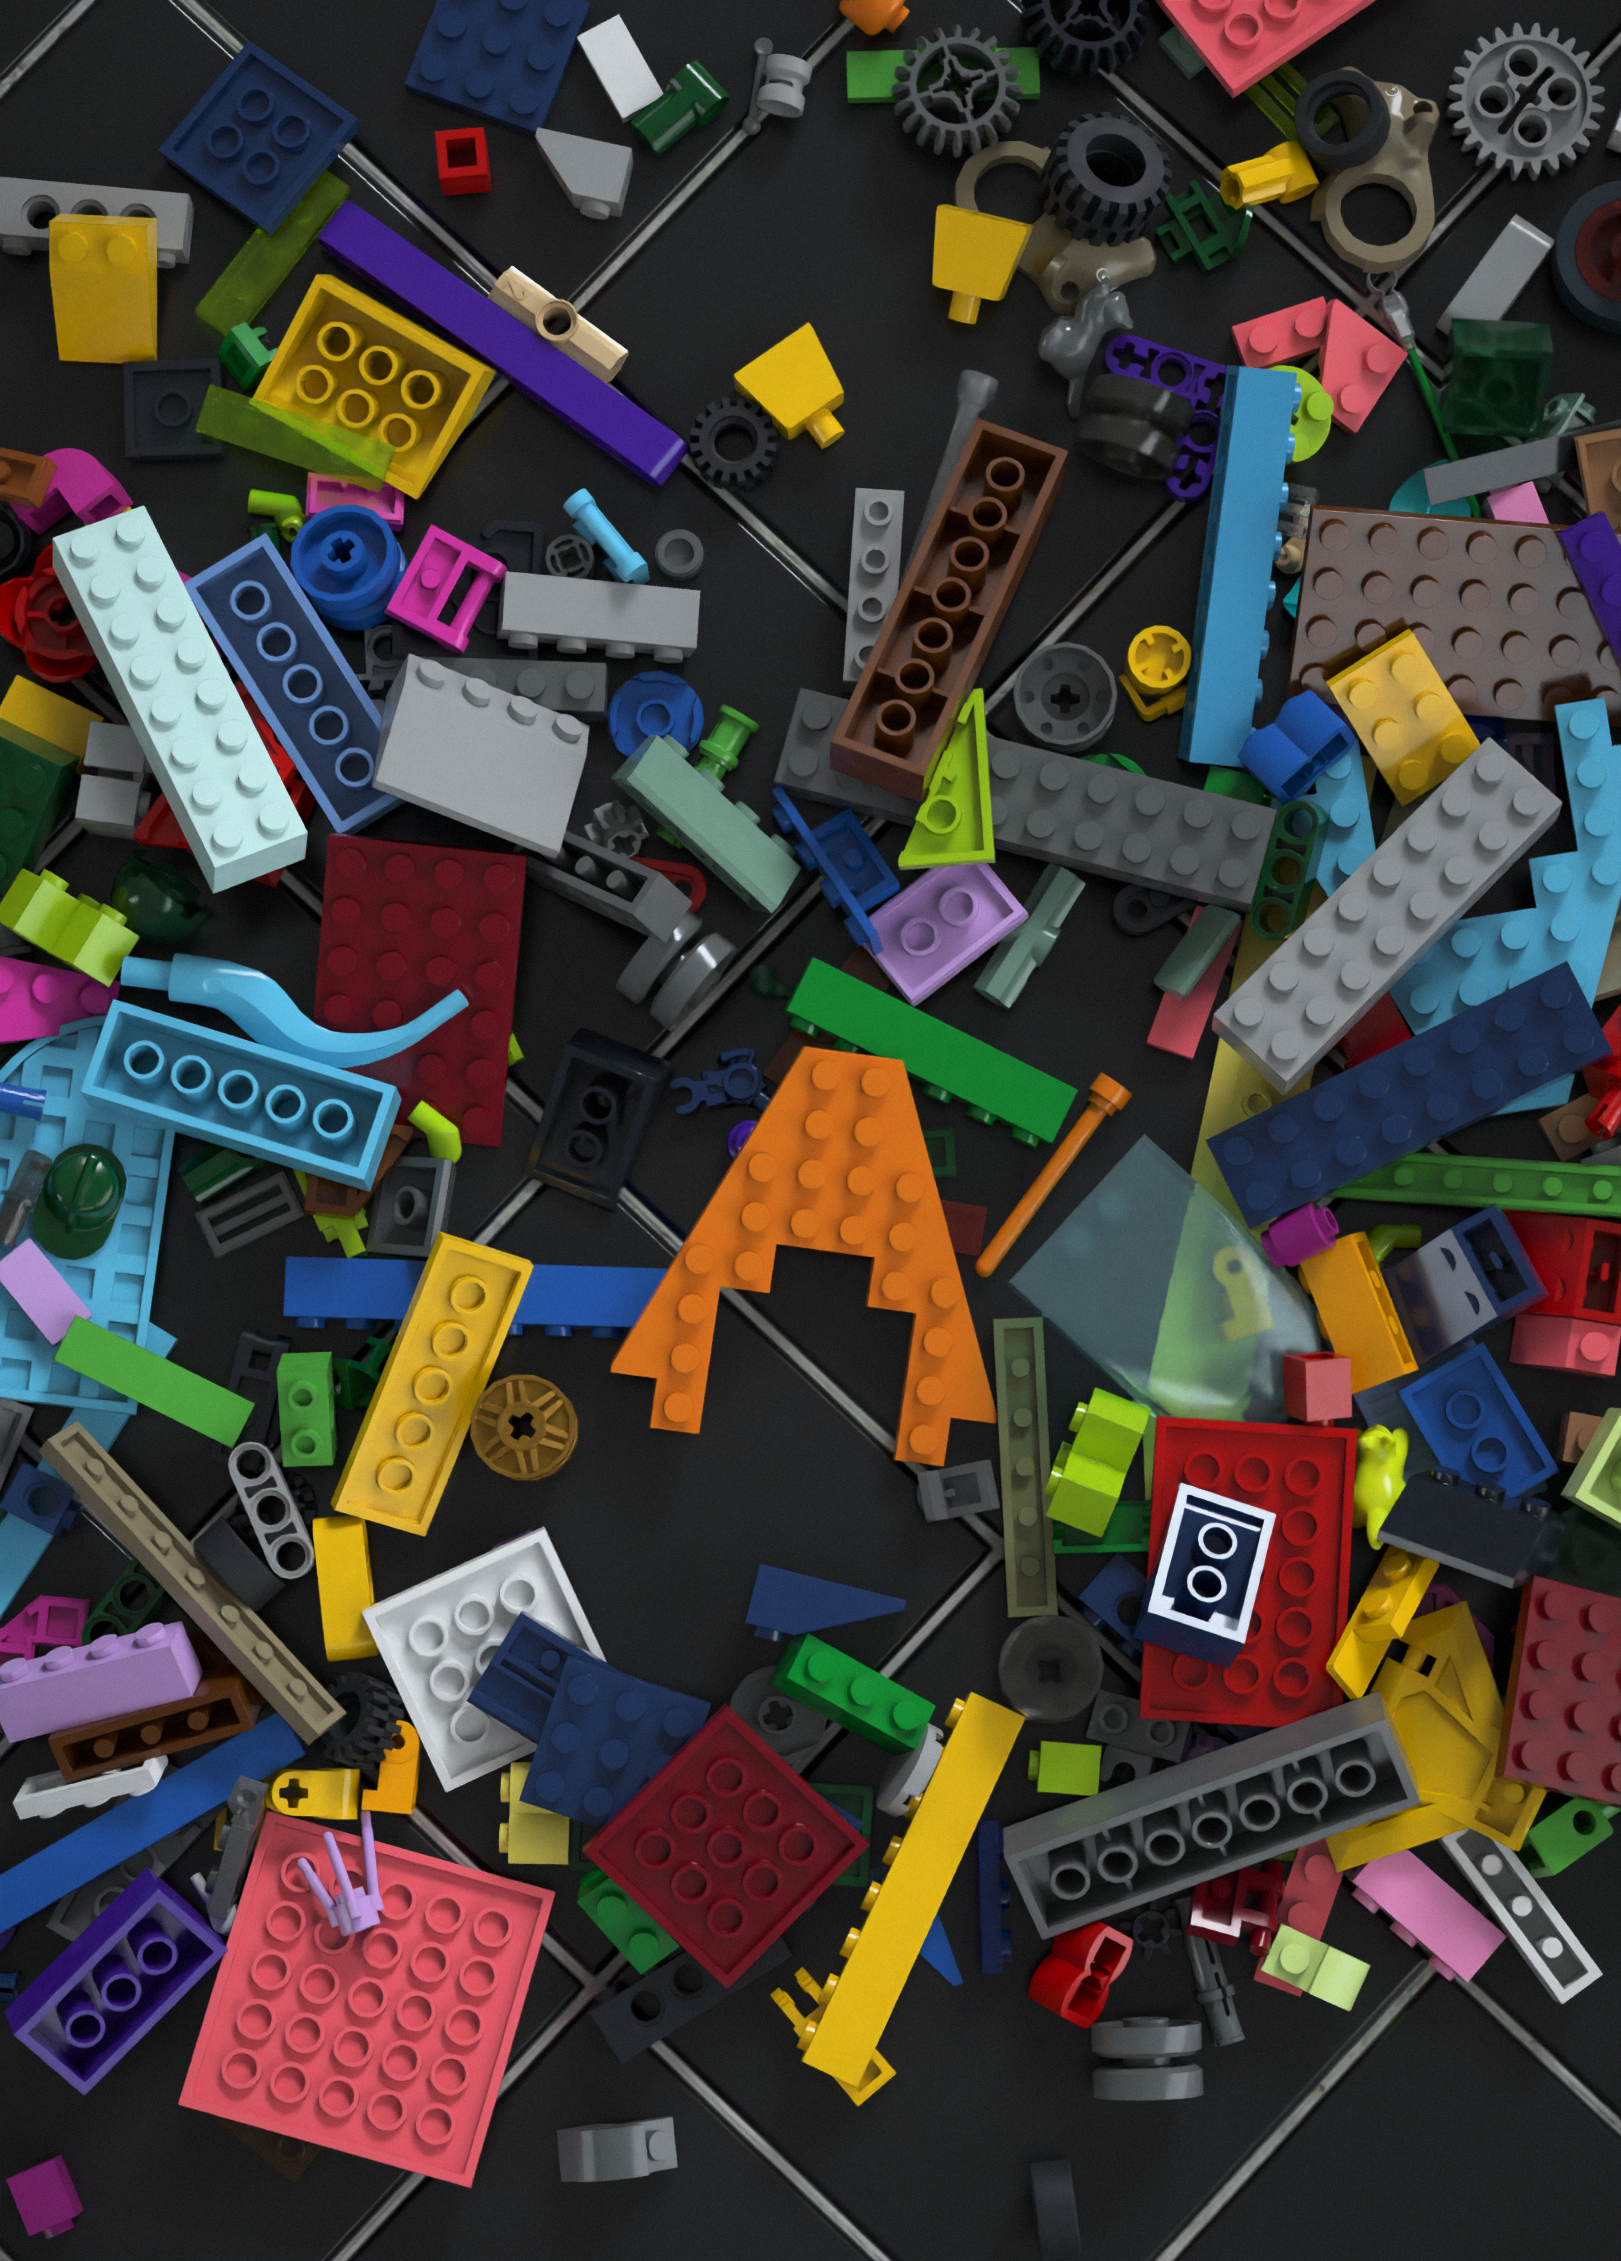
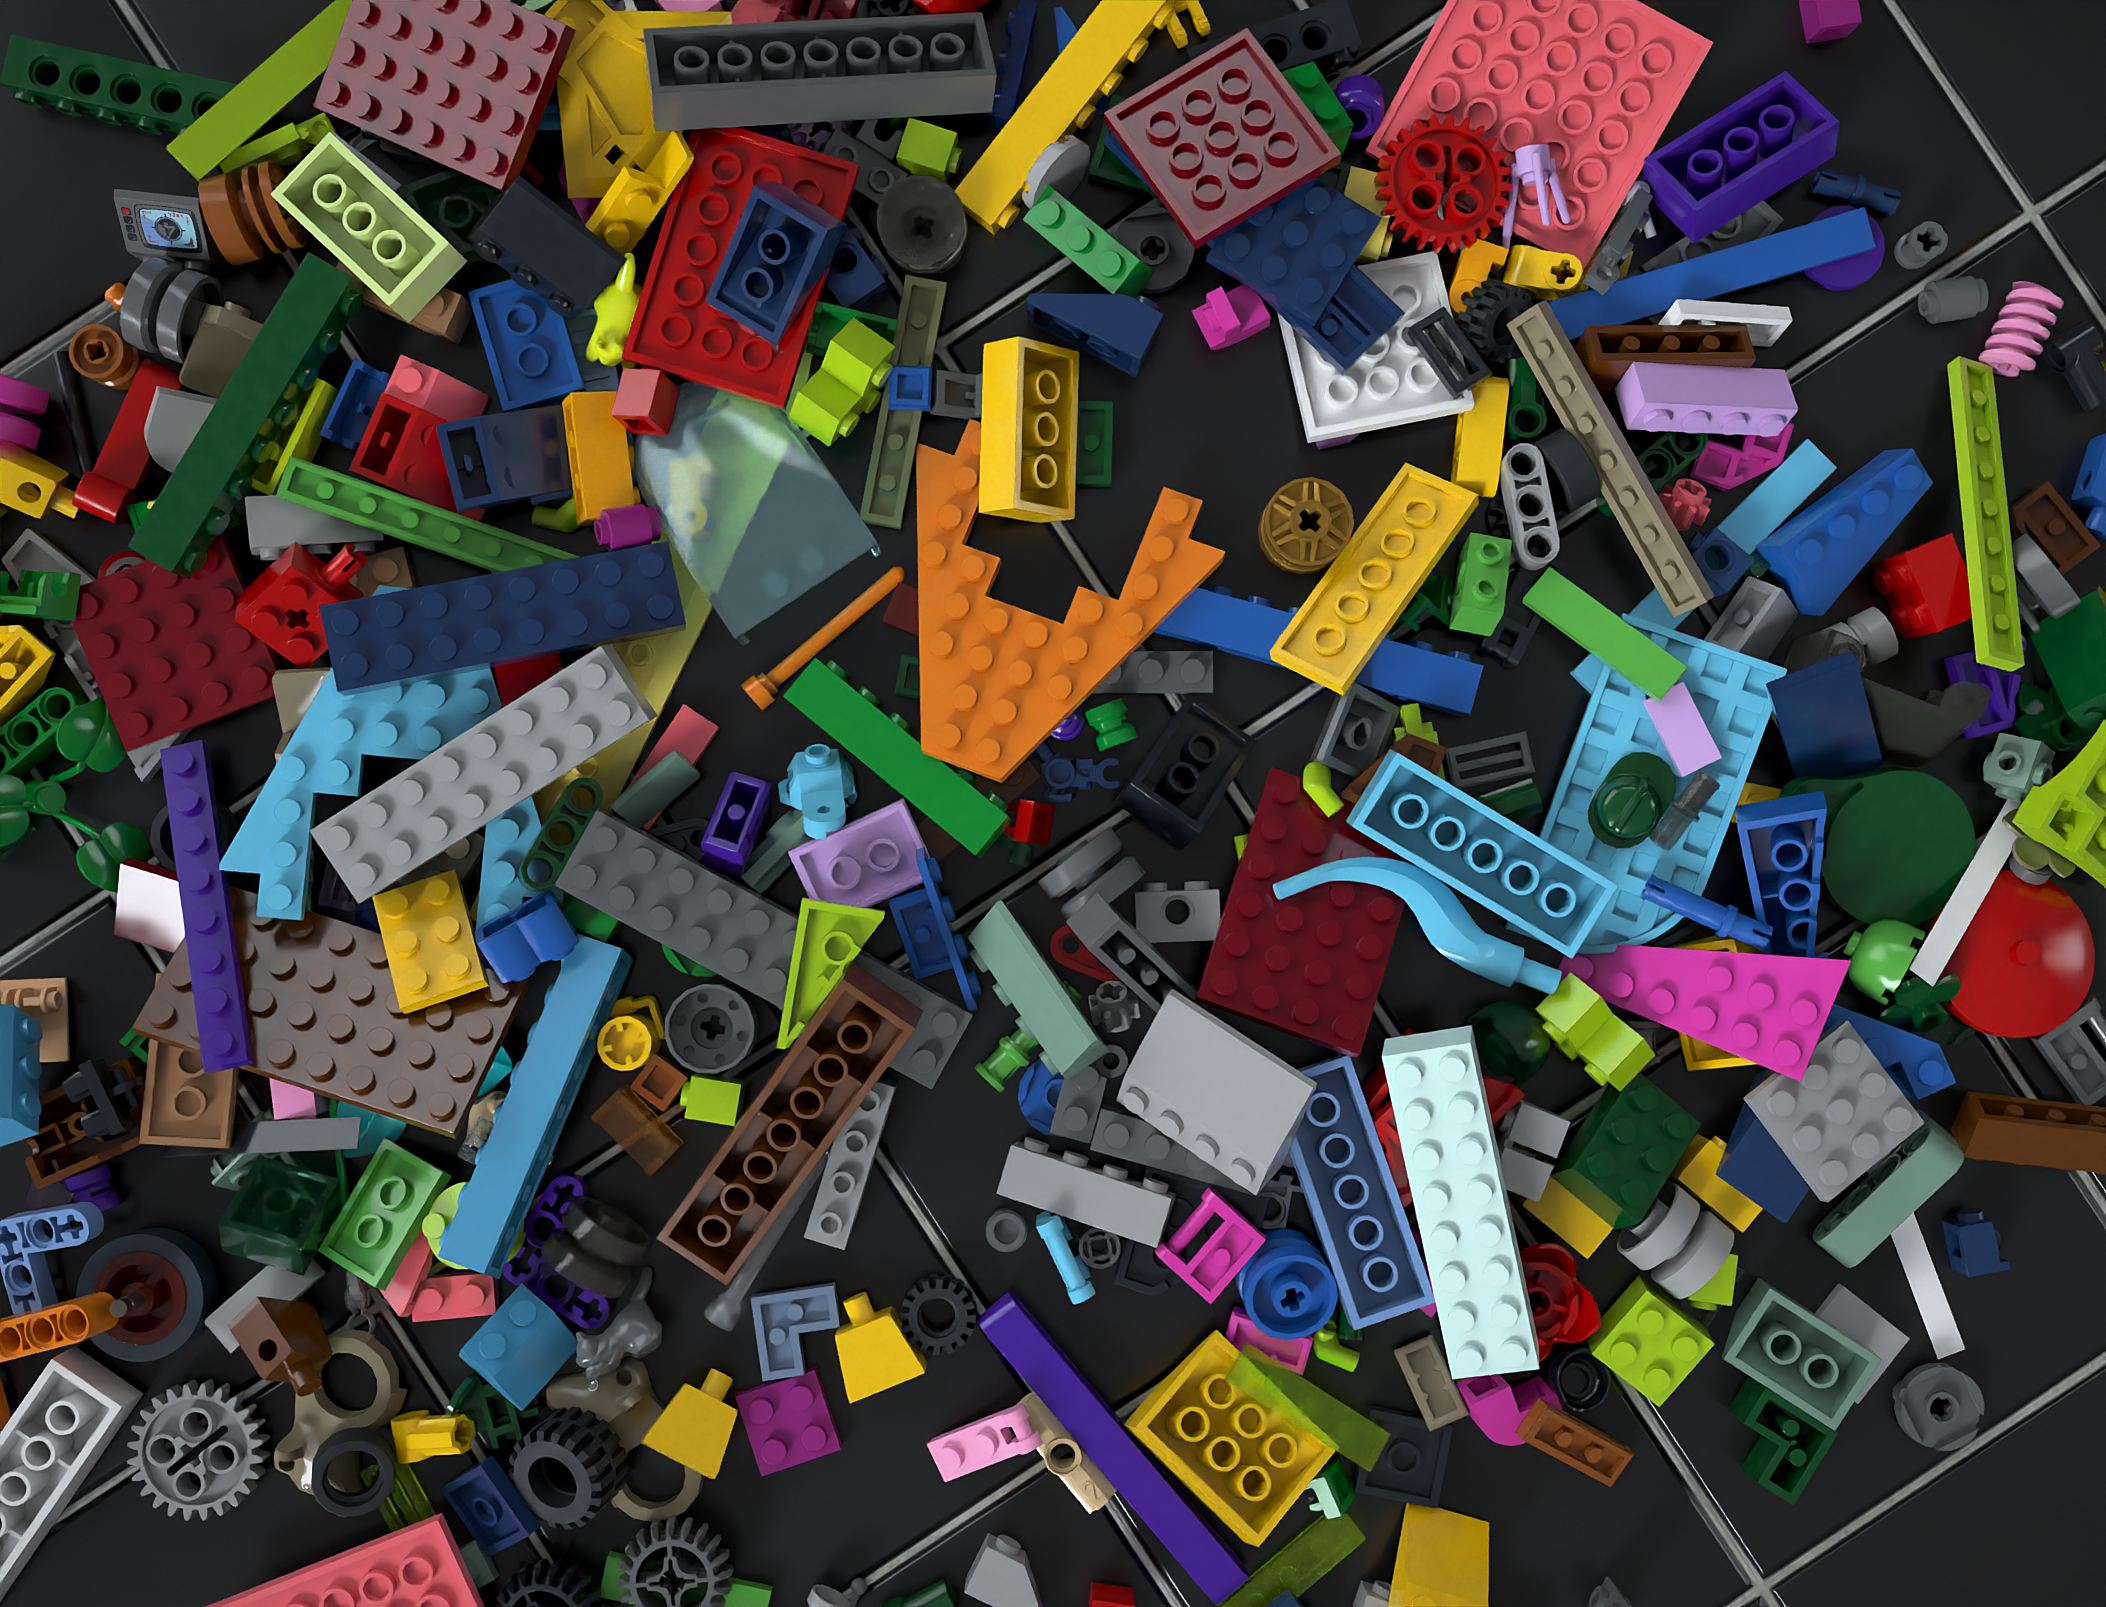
camera: 170 degrees left, 5 degrees up
(91, 1561) = (1685, 503): none -> coral gear
(170, 507) = (1431, 1382): none -> dark tan plate
(305, 1642) = (1524, 398): none -> dark green piece
(374, 1637) = (1435, 361): none -> black tile
(501, 1859) = (1479, 189): none -> red gear
(543, 942) = (1199, 924): none -> light grey brick
(574, 1941) = (1363, 102): none -> dark purple head
(628, 720) = (1082, 1097): none -> dark grey hinge
(647, 1225) = (1161, 674): none -> dark grey plate
(648, 314) = (984, 1442): none -> bright pink plate
(668, 1652) = (1231, 316): none -> dark pink brick
(696, 1152) = (1111, 724): none -> green wheel
(759, 1017) = (1032, 822): none -> red tile
(795, 1470) = (1094, 444): none -> dark green plate
(869, 1459) = (1028, 430): none -> yellow brick
(874, 287) = (788, 1421): none -> magenta plate
(909, 393) = (783, 1317): none -> sand blue plate
(1011, 996) = (818, 787): none -> medium azure piece
(1019, 1481) = (910, 388): none -> blue tile
(1045, 620) = (714, 1098): none -> lime brick
(1094, 932) = (736, 823): none -> dark purple brick
(1111, 626) = (660, 1081): none -> dark orange plate
(1123, 566) = (637, 1129): none -> clear orange hinge
(1182, 116) = (490, 1506): none -> dark blue tile
(1193, 297) = (520, 1347): none -> dark azure slope
(1382, 407) = (384, 1214): none -> bright green plate
(1452, 241) = (283, 1341): none -> reddish brown torso

